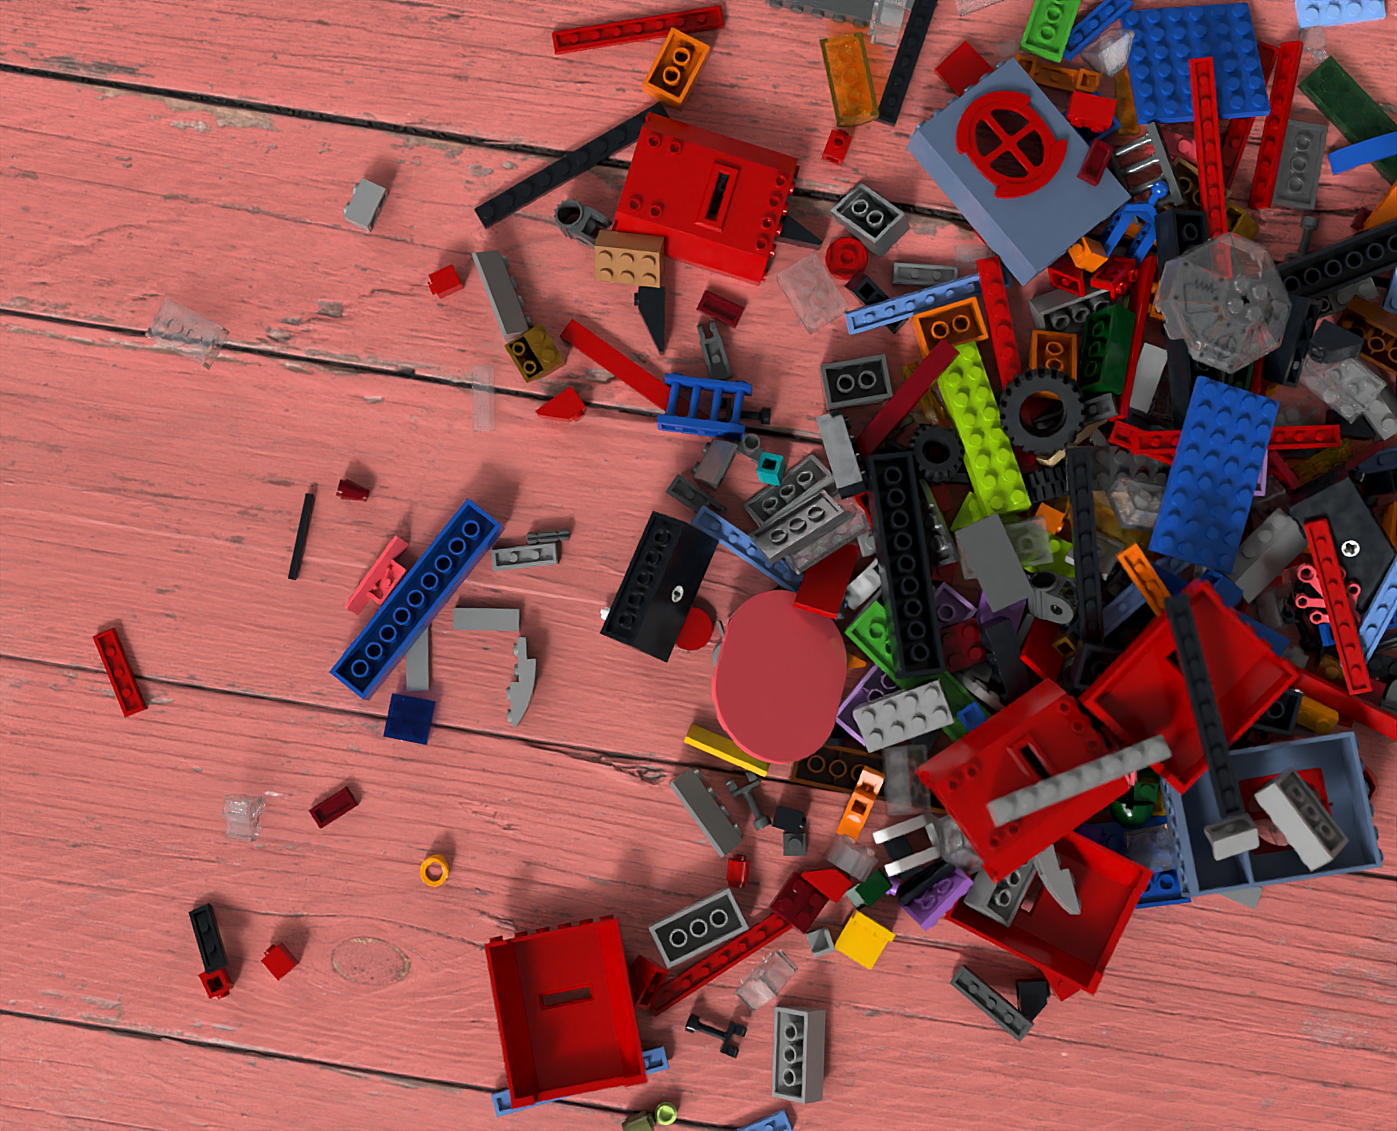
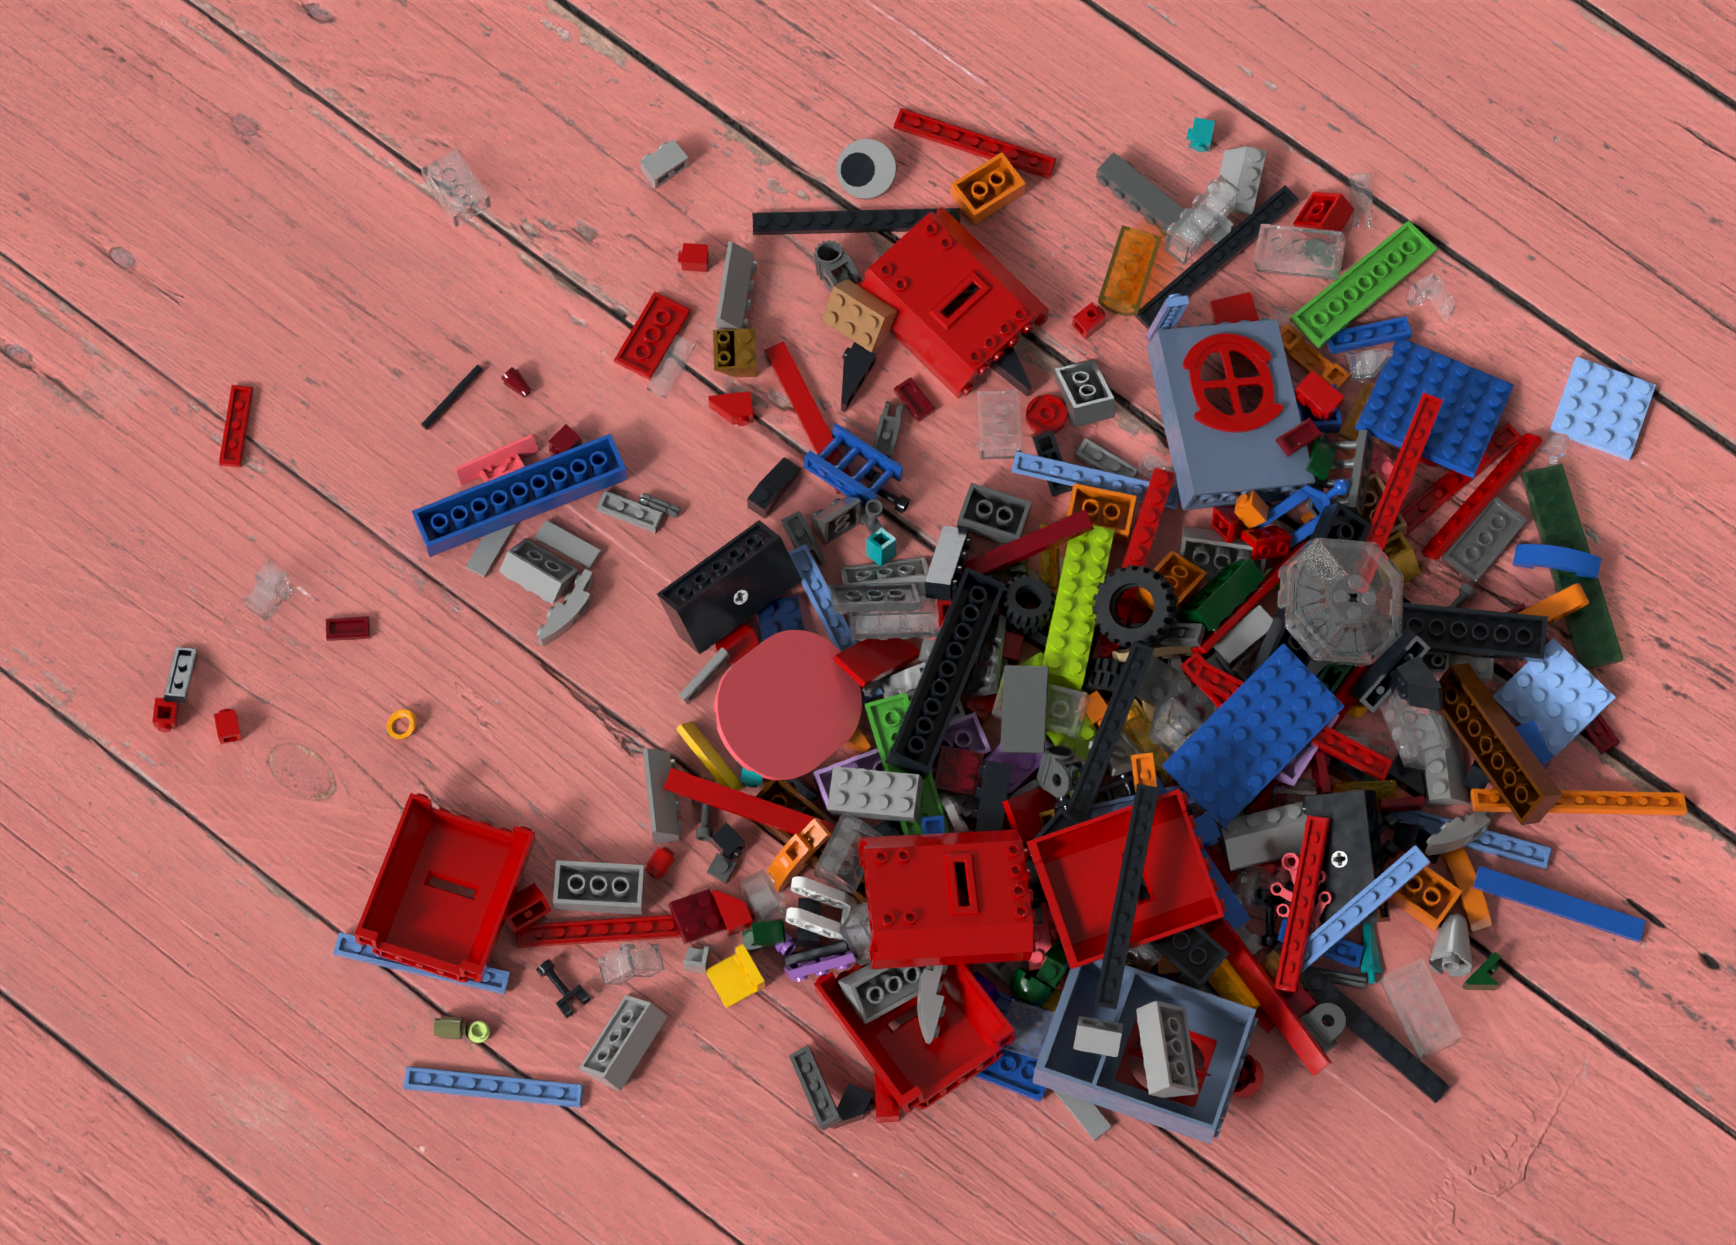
camera: 30 degrees right, 15 degrees down
(409, 719) = (455, 589): clear blue plate -> none
(429, 525) = (564, 440): none -> dark red brick
(449, 377) = (652, 335): none -> red tile
(475, 659) = (538, 570): none -> light grey slope
(554, 110) = (866, 169): none -> light grey piece
(641, 462) = (772, 487): none -> black slope
(681, 676) = (704, 675): none -> light grey tile
(719, 586) = (780, 616): none -> dark blue plate
(788, 784) = (740, 803): none -> red tile
(925, 112) = (1169, 313): none -> medium blue plate
(1078, 780) = (988, 905): light grey brick -> none
(1126, 171) = (1321, 459): none -> dark green slope

